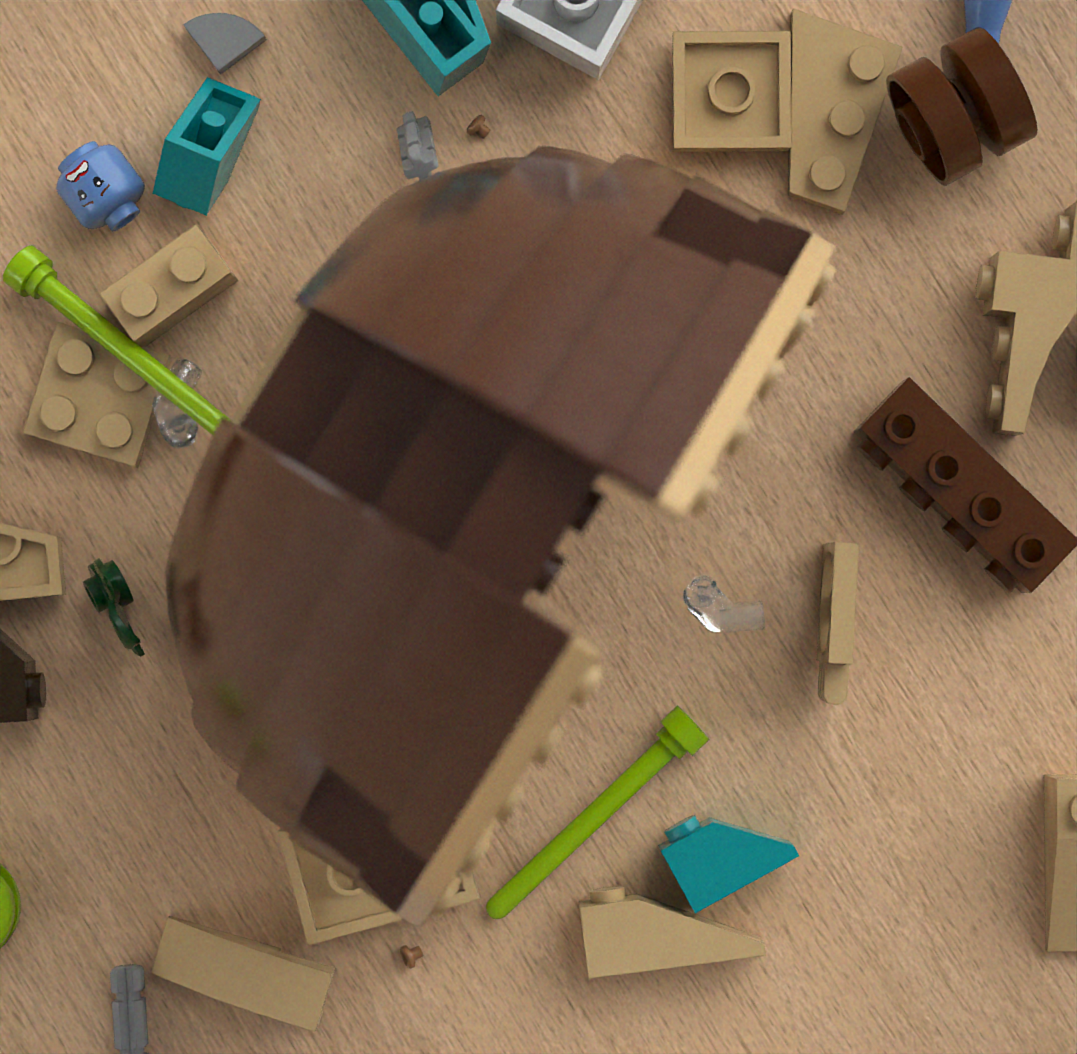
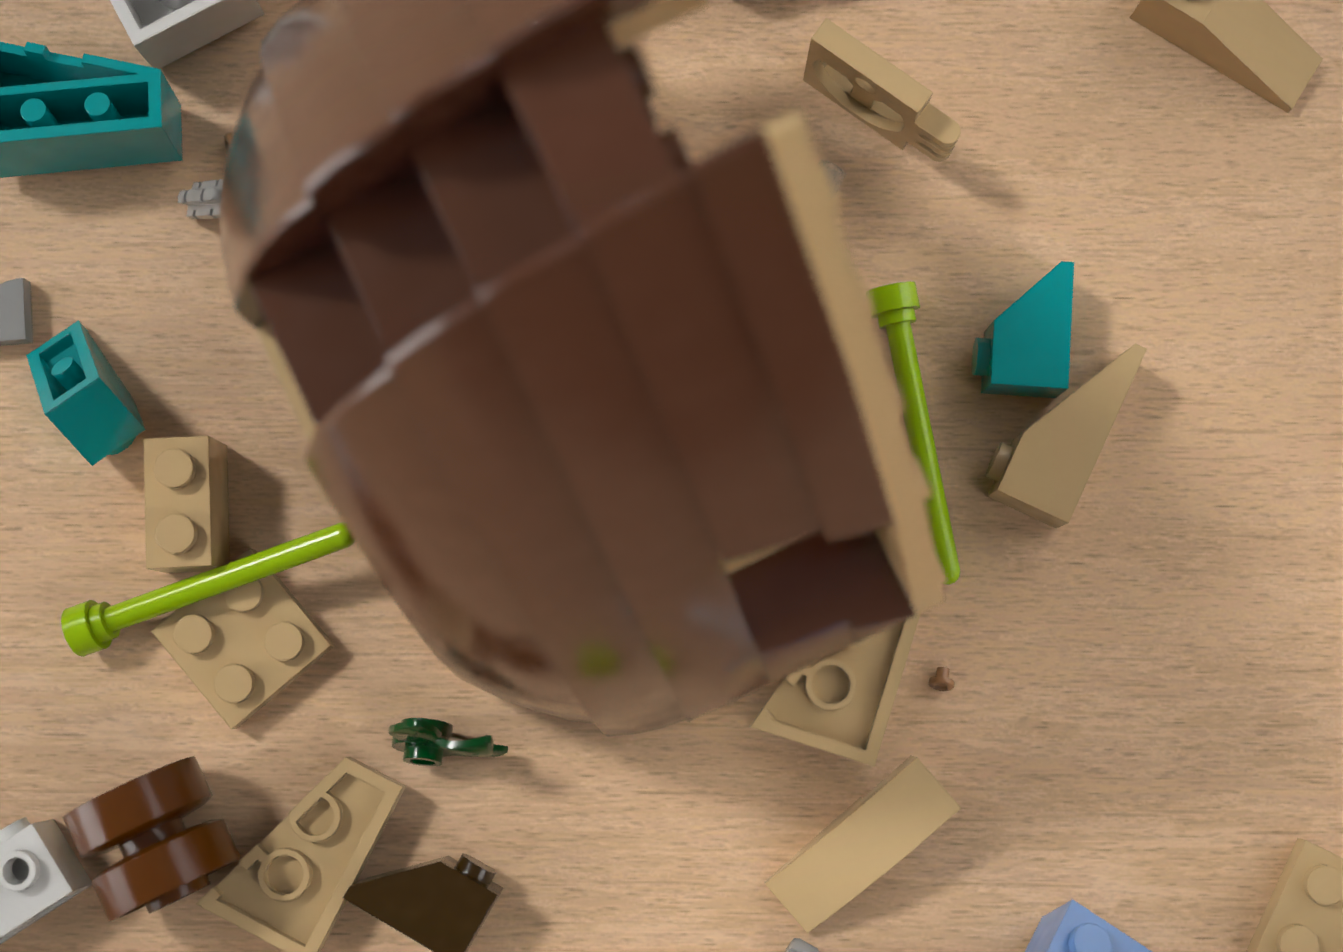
camera: 60 degrees left, 5 degrees down
(100, 186) = (54, 511): medium blue head -> none
(174, 424) = (312, 580): clear arm -> none

